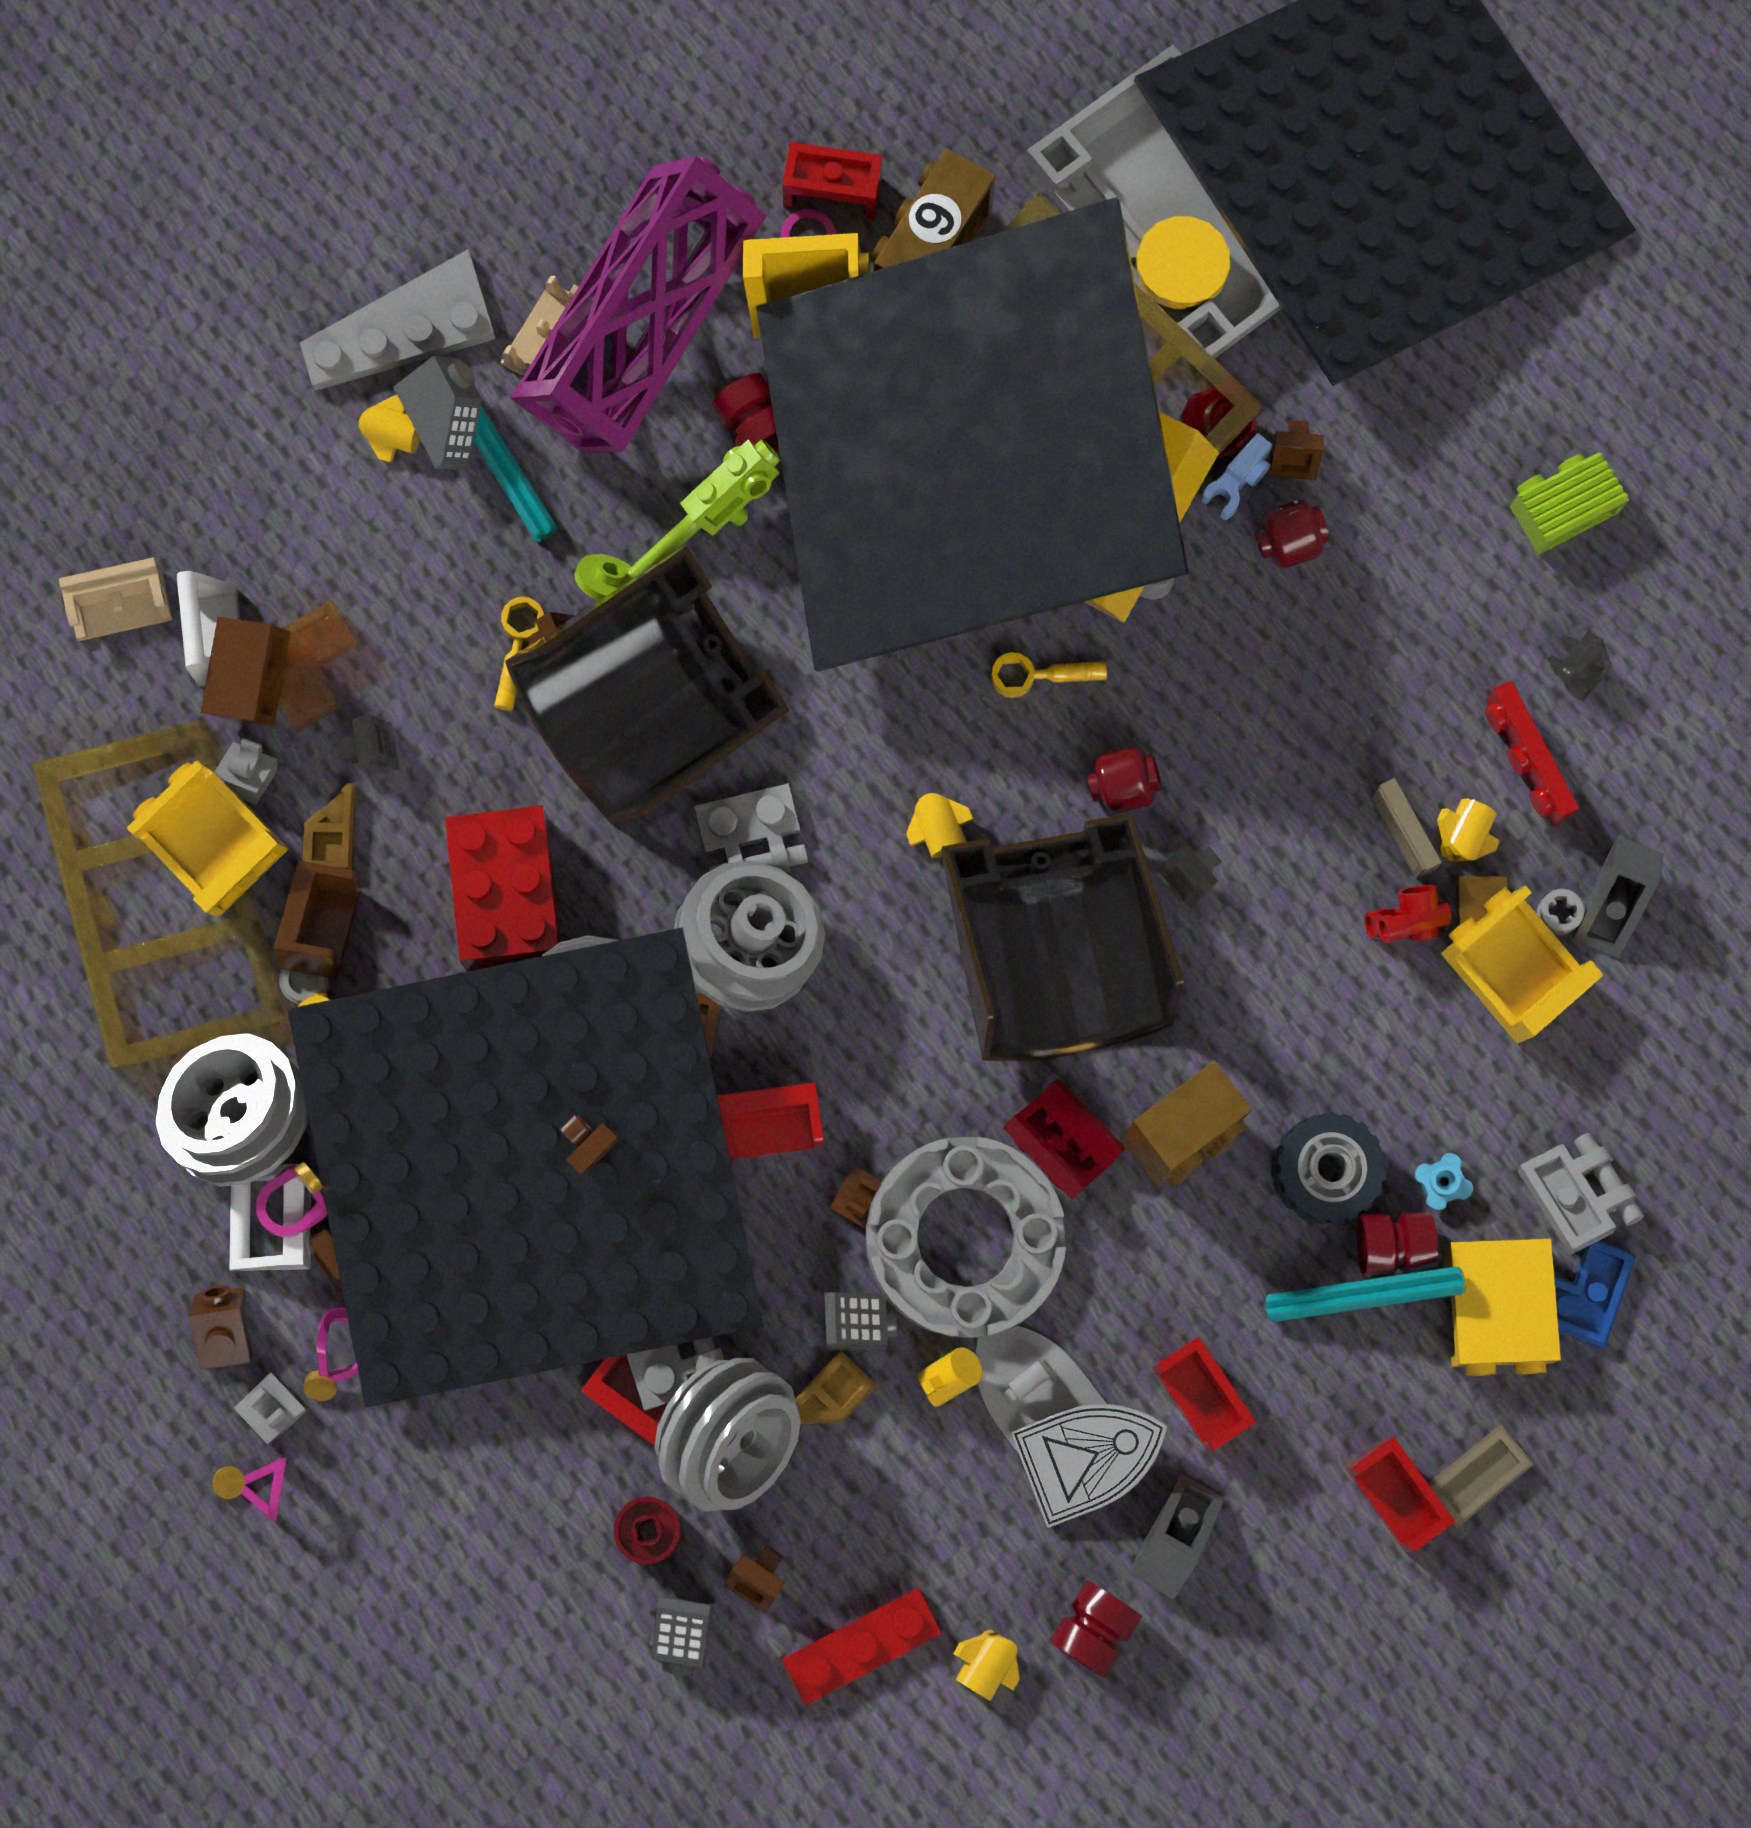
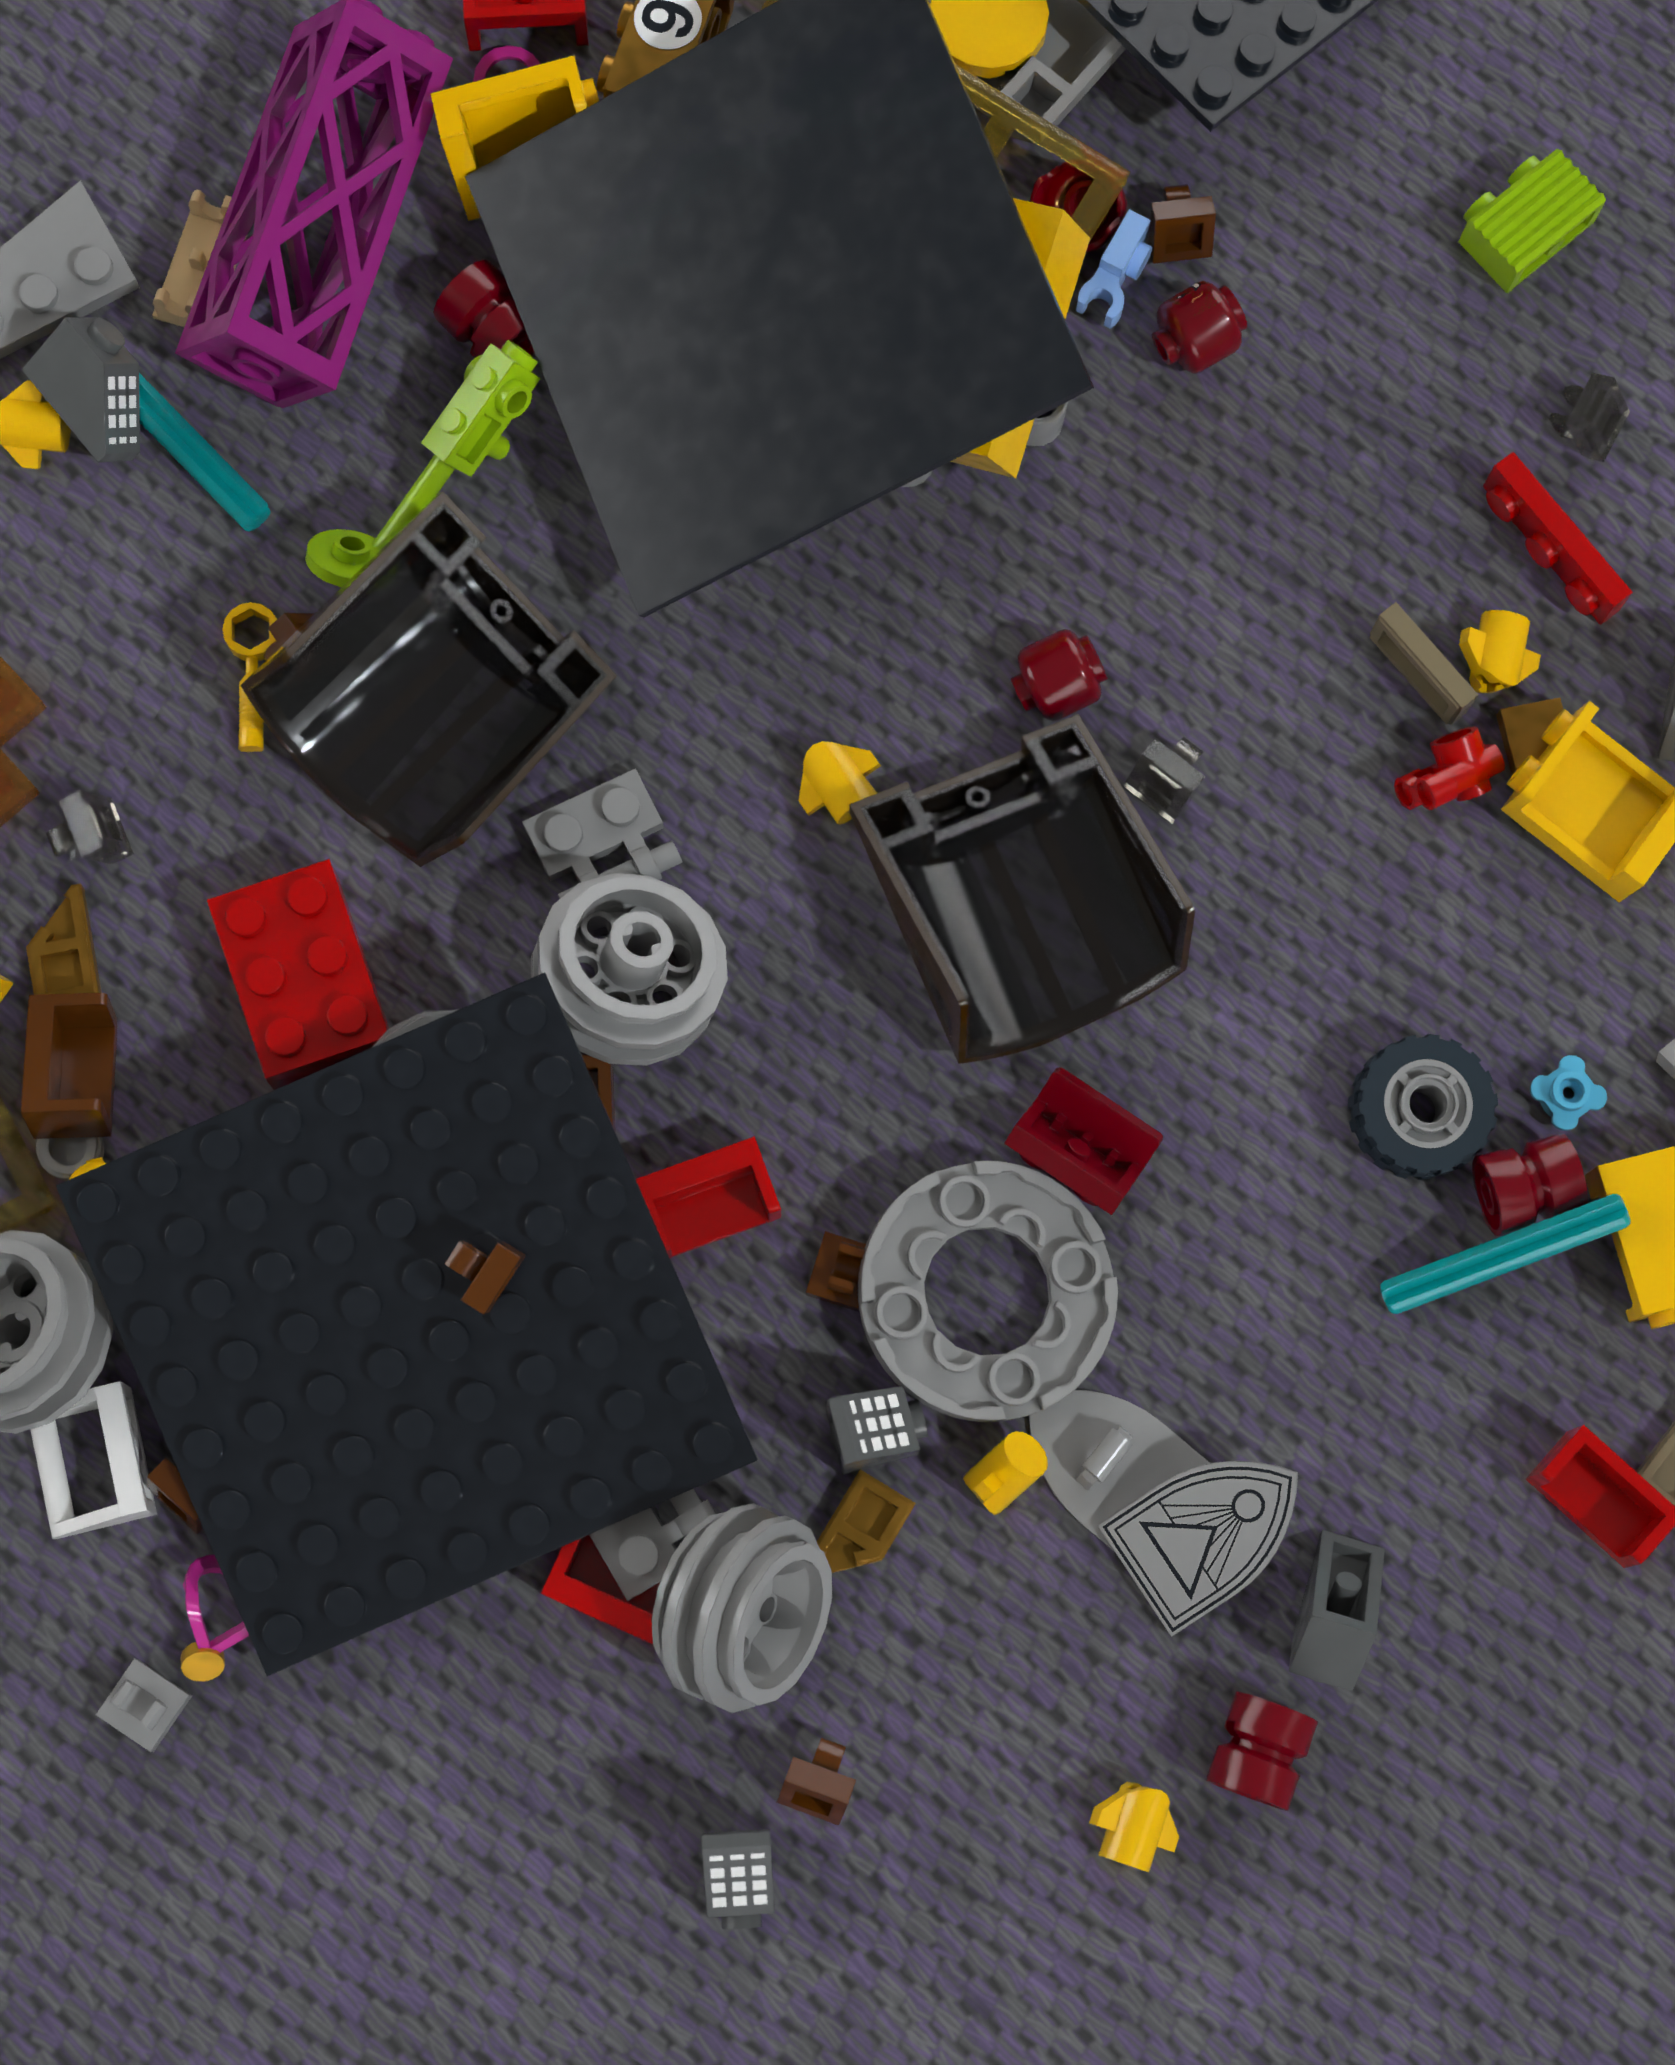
camera: 15 degrees left, 0 degrees up
(220, 1327) = (56, 1615): reddish brown bracket -> none
(231, 1482) = (113, 1810): piece -> none
(311, 1218) = (146, 1446): dark pink piece -> none
(648, 1531) = (666, 1753): dark red wheel -> none
(861, 1646) = (969, 1839): red plate -> none
(1055, 673) = (941, 562): yellow piece -> none
(1184, 1125) = (1240, 1091): pearl gold brick -> none
(1203, 1395) = (1331, 1425): red panel -> none
(1570, 901) = (1644, 711): light grey bush -> none

